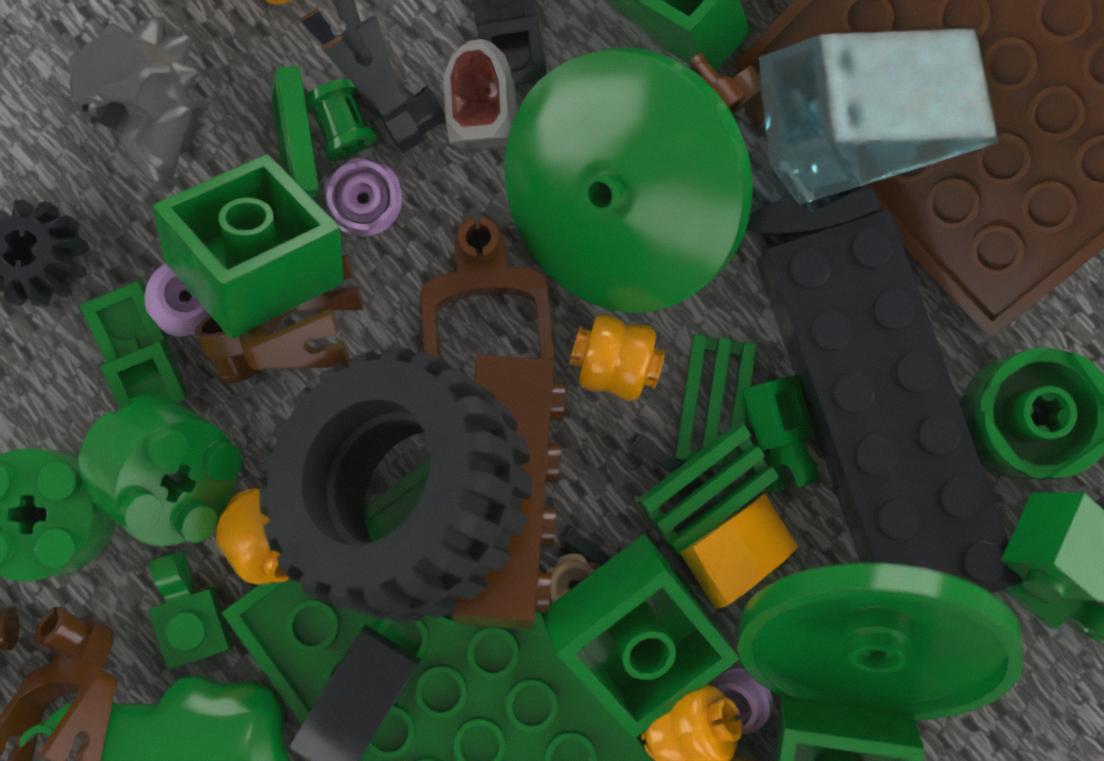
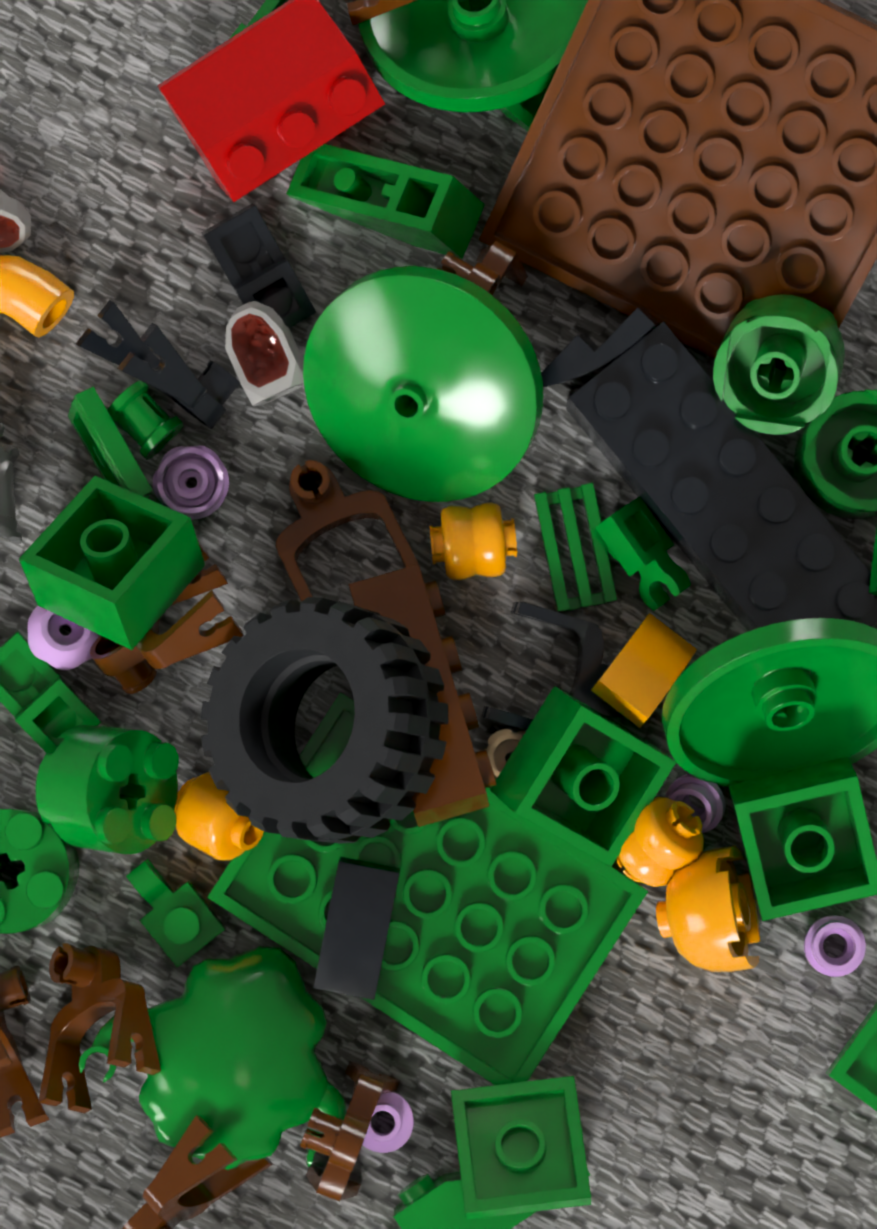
camera: 20 degrees left, 0 degrees up
(721, 509) = (623, 585): green tile -> none
(872, 106) = (611, 242): clear light blue slope -> none
(1018, 321) = (747, 374): none -> green brick

